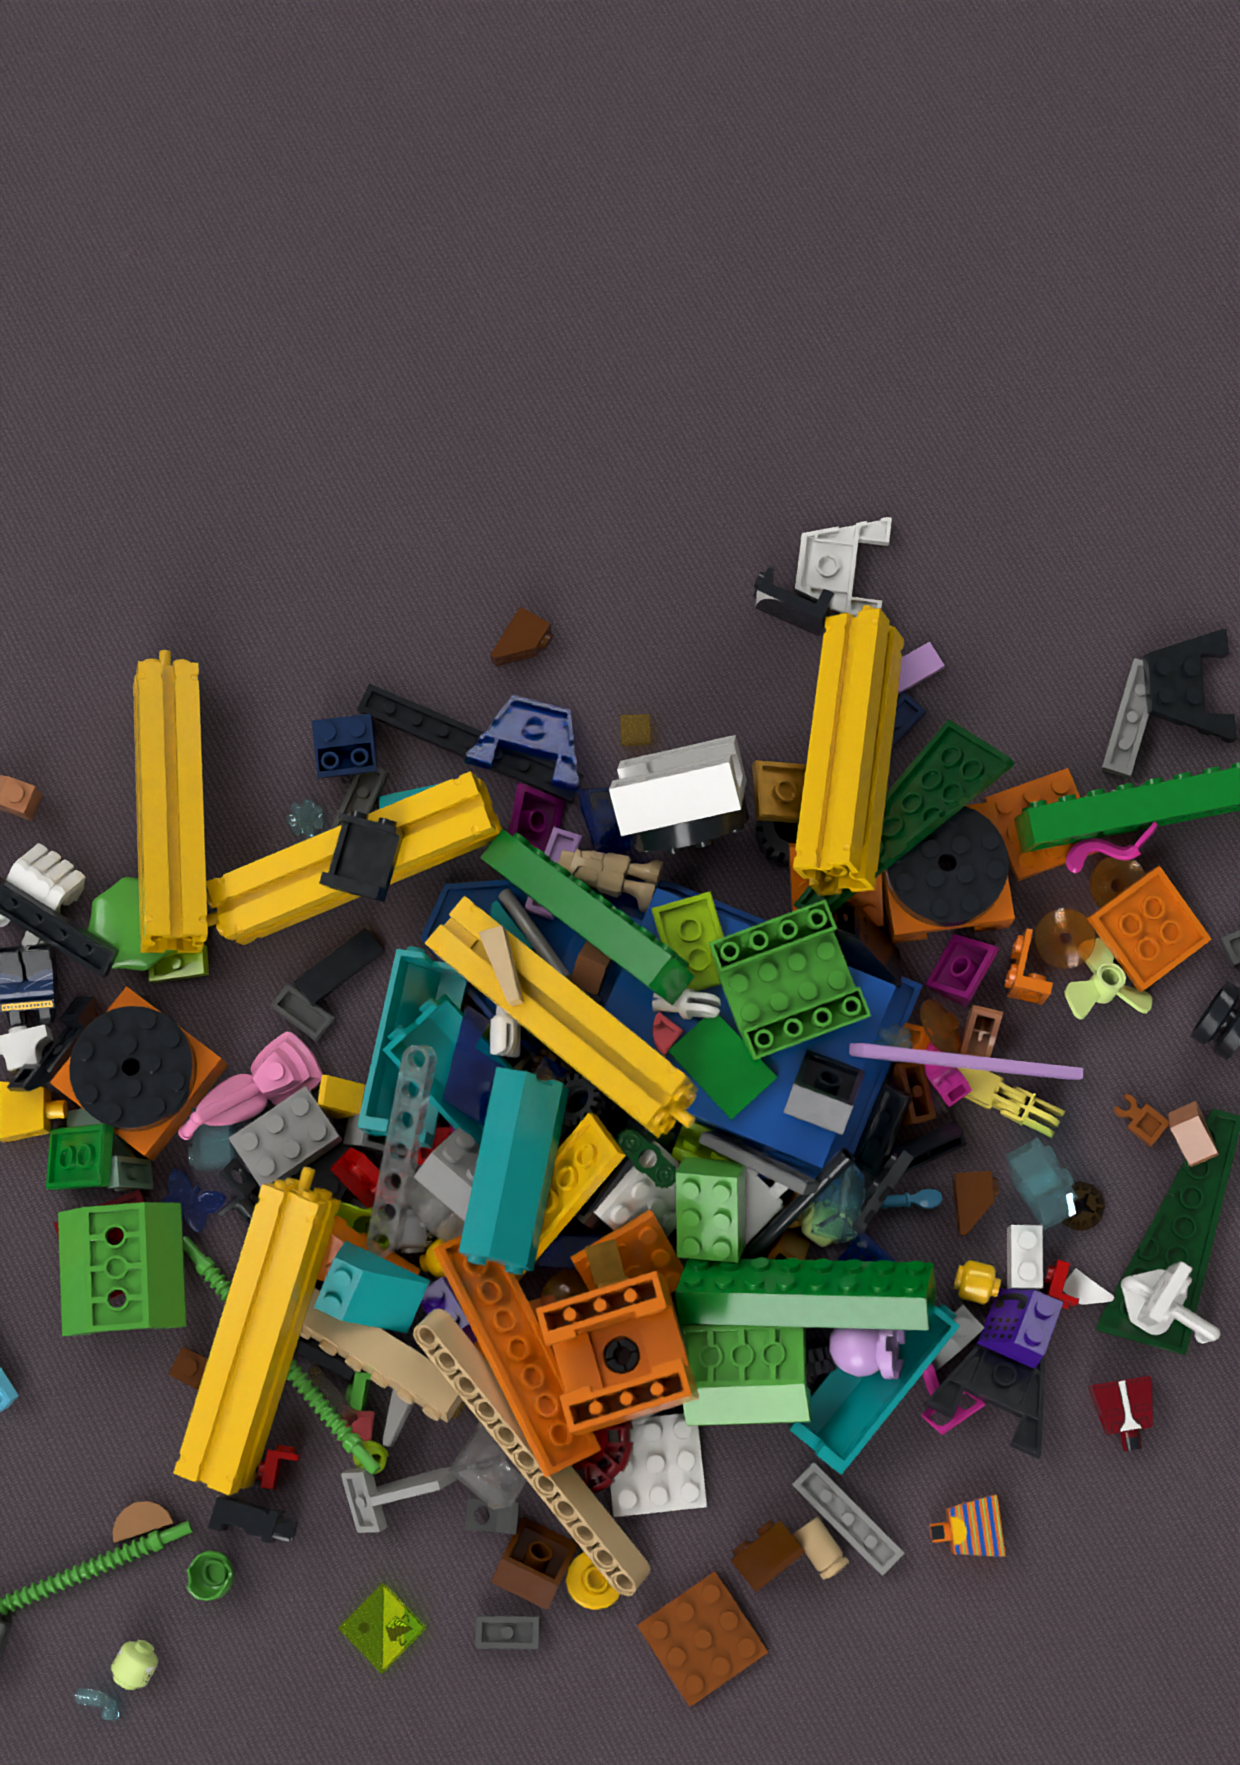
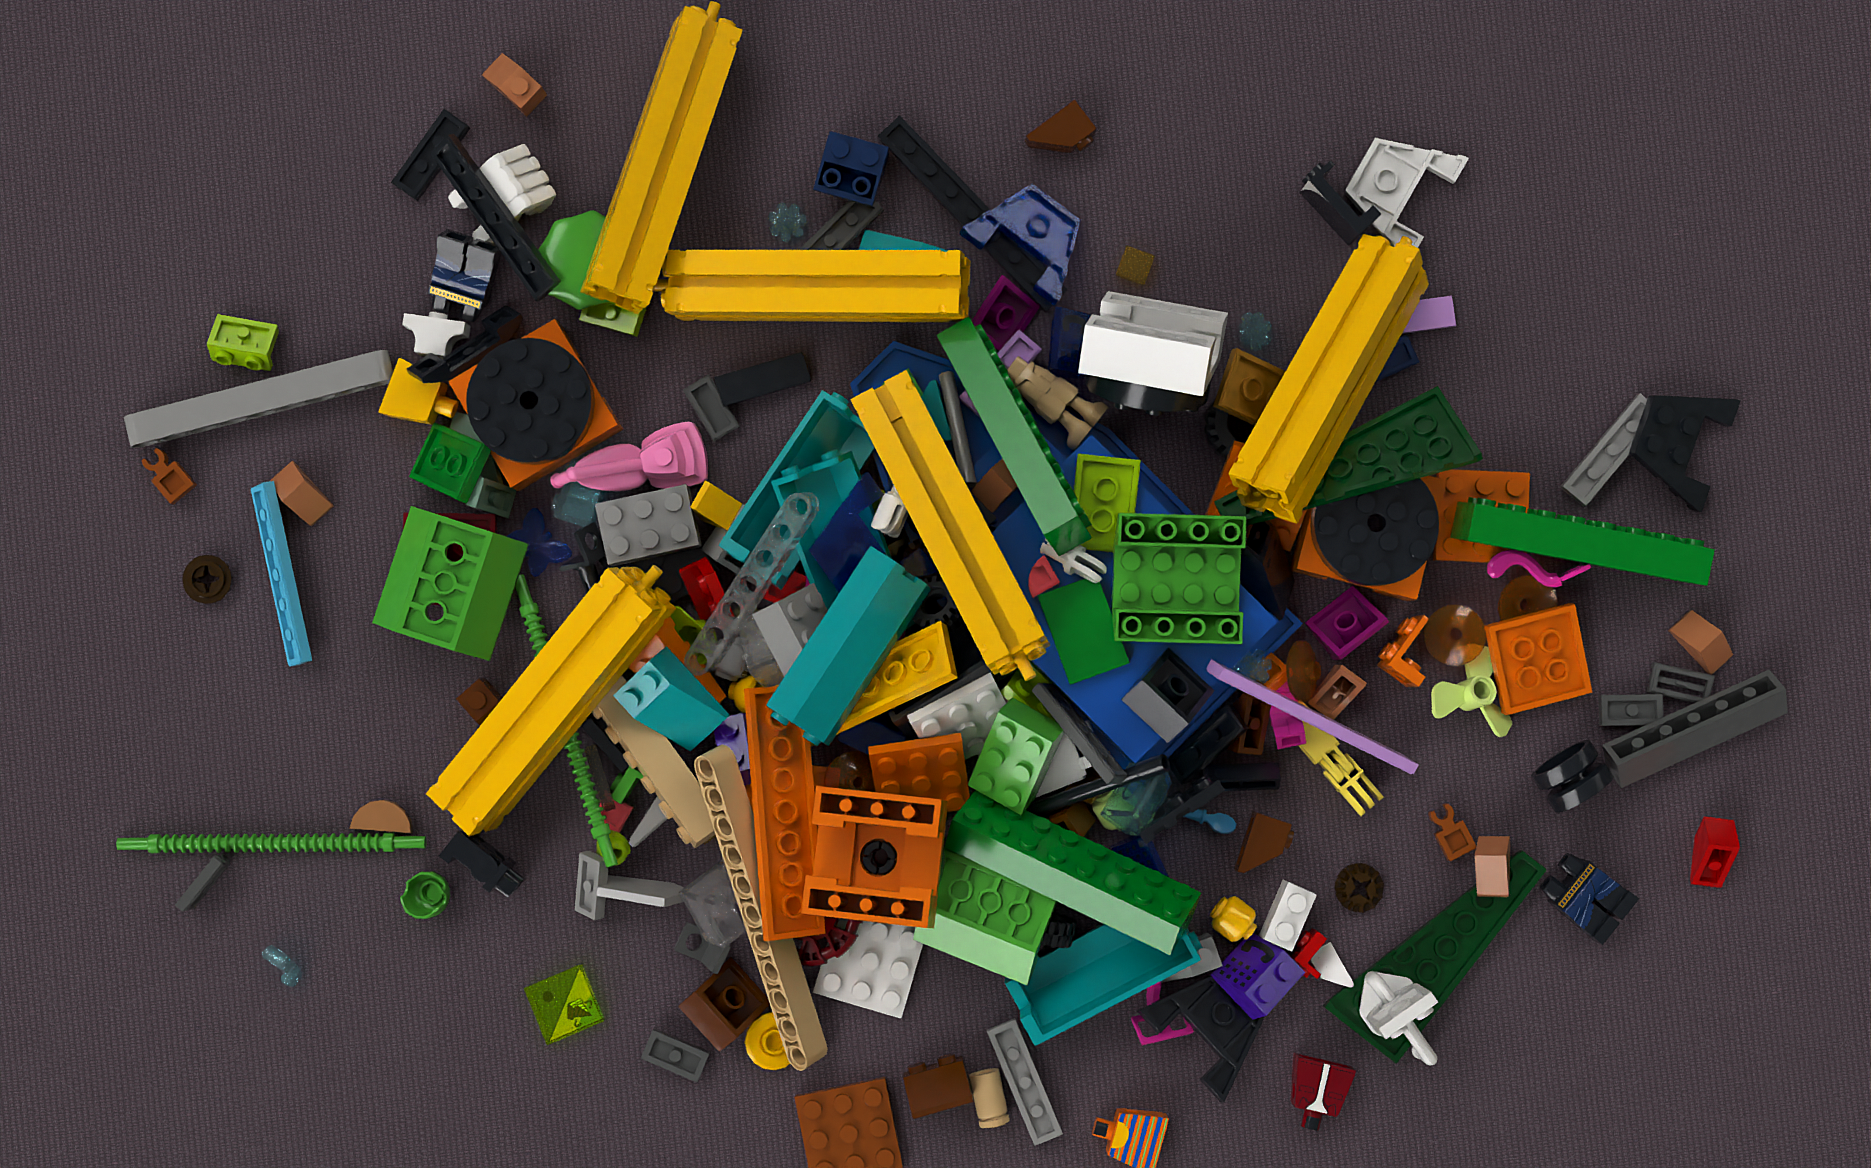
camera: 10 degrees right, 10 degrees up
(134, 1664) = (327, 945): yellowish green head -> none
(270, 1469) = (517, 821): red bracket -> none
(364, 856) = (826, 291): black panel -> none
(500, 955) = (916, 442): tan piece -> none
(605, 1263) = (898, 770): pearl gold bracket -> none
(632, 1144) = (968, 669): dark green piece -> none
(767, 742) = (1255, 330): none -> clear light blue plant
(867, 1351) = (1105, 946): lavender tile -> none
(1042, 1183) = (1333, 856): clear light blue brick -> none

